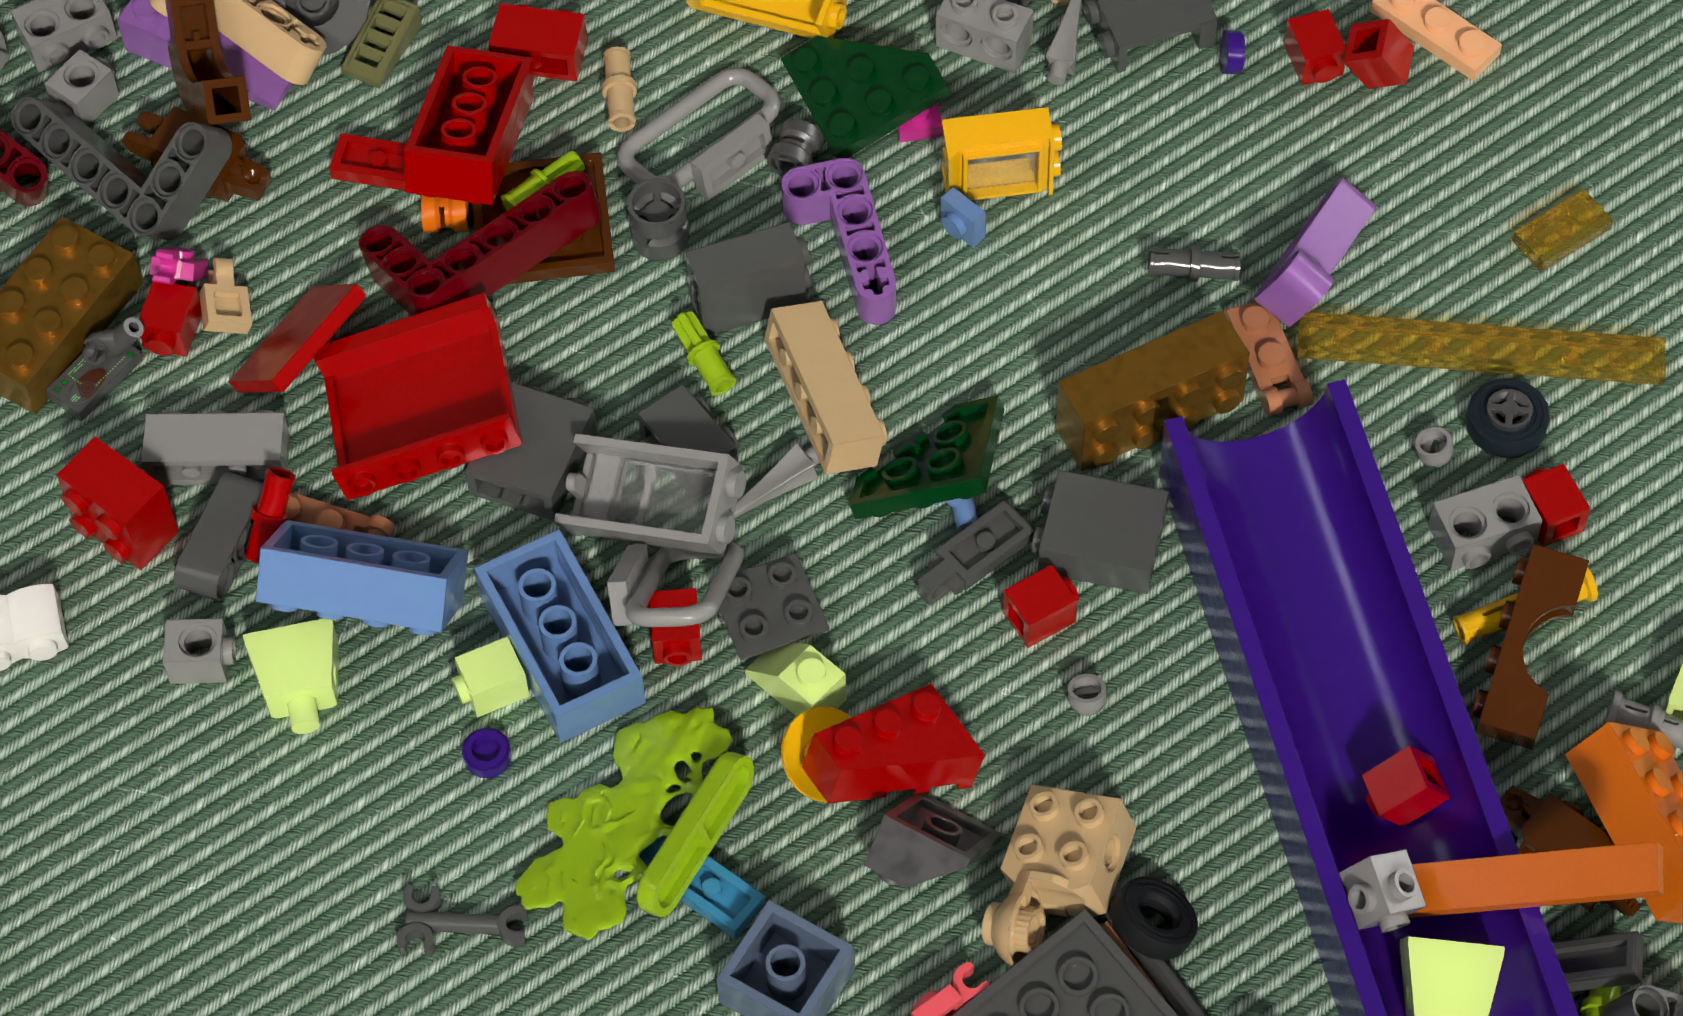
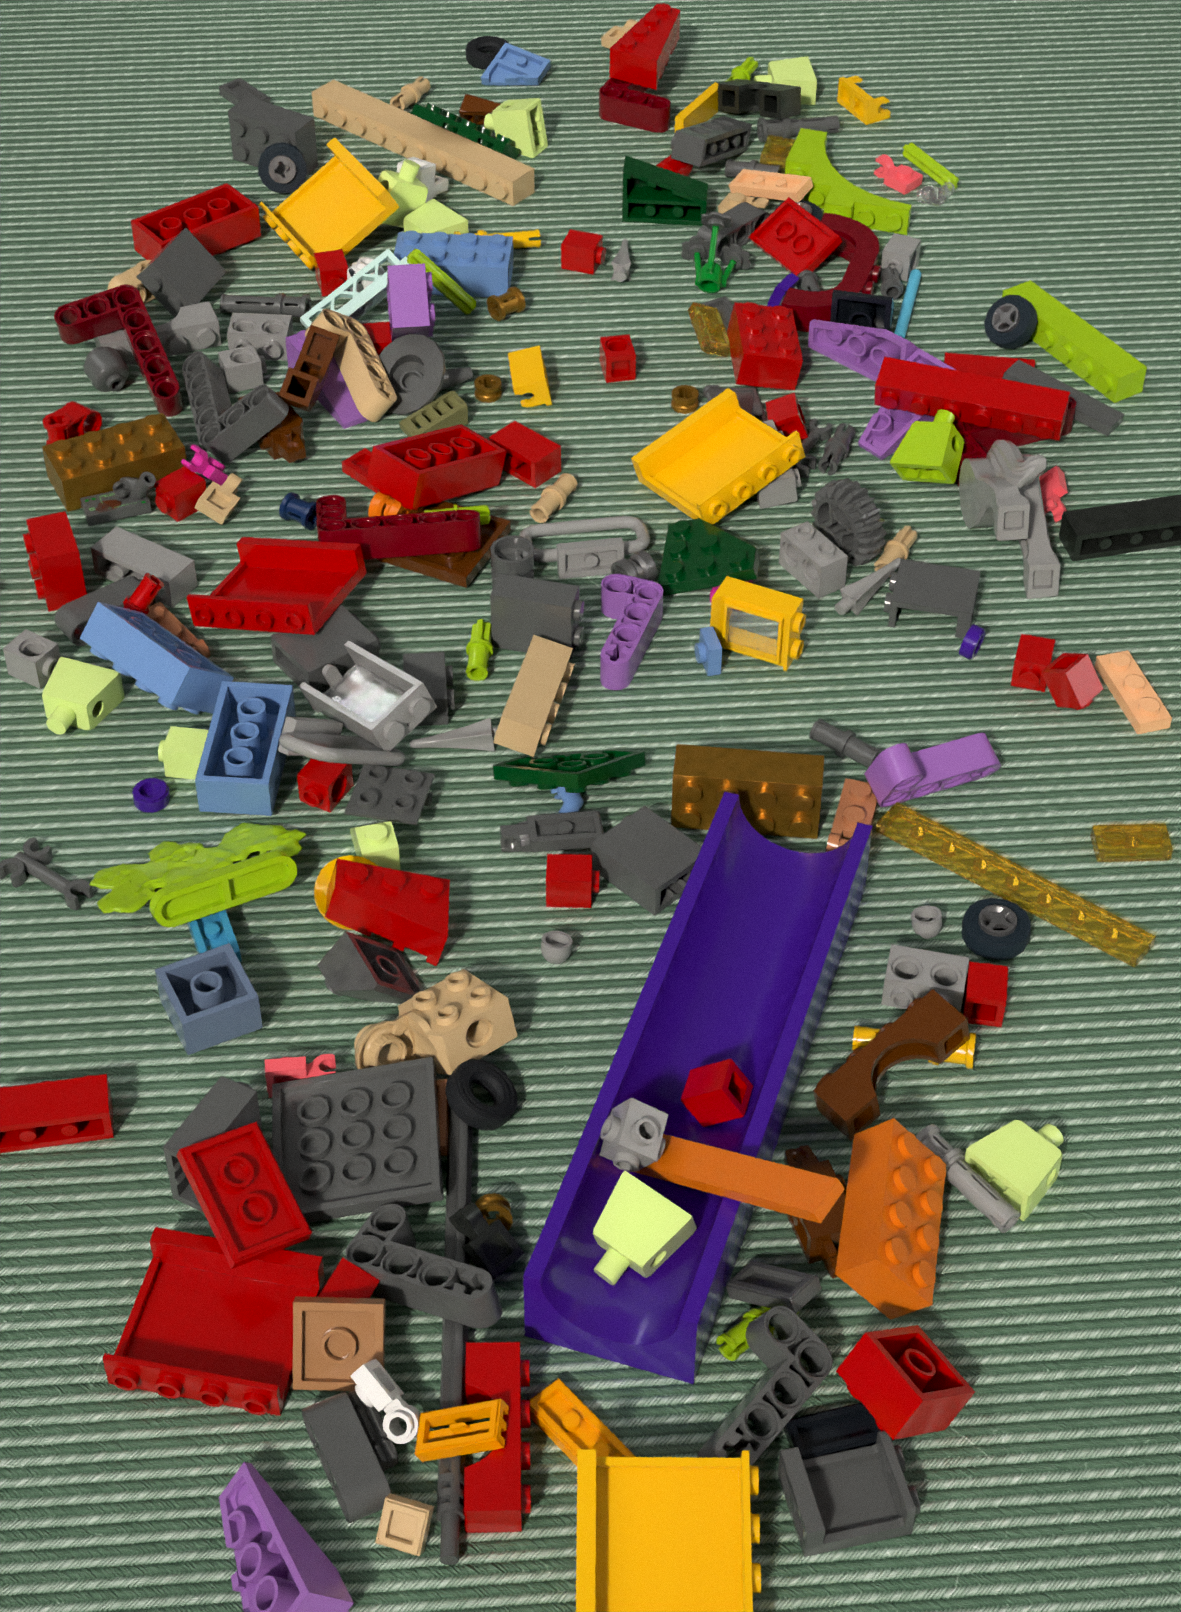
camera: 30 degrees right, 15 degrees down
(297, 338) = (236, 531): red tile -> none
(336, 266) = (298, 510): none -> dark blue bush

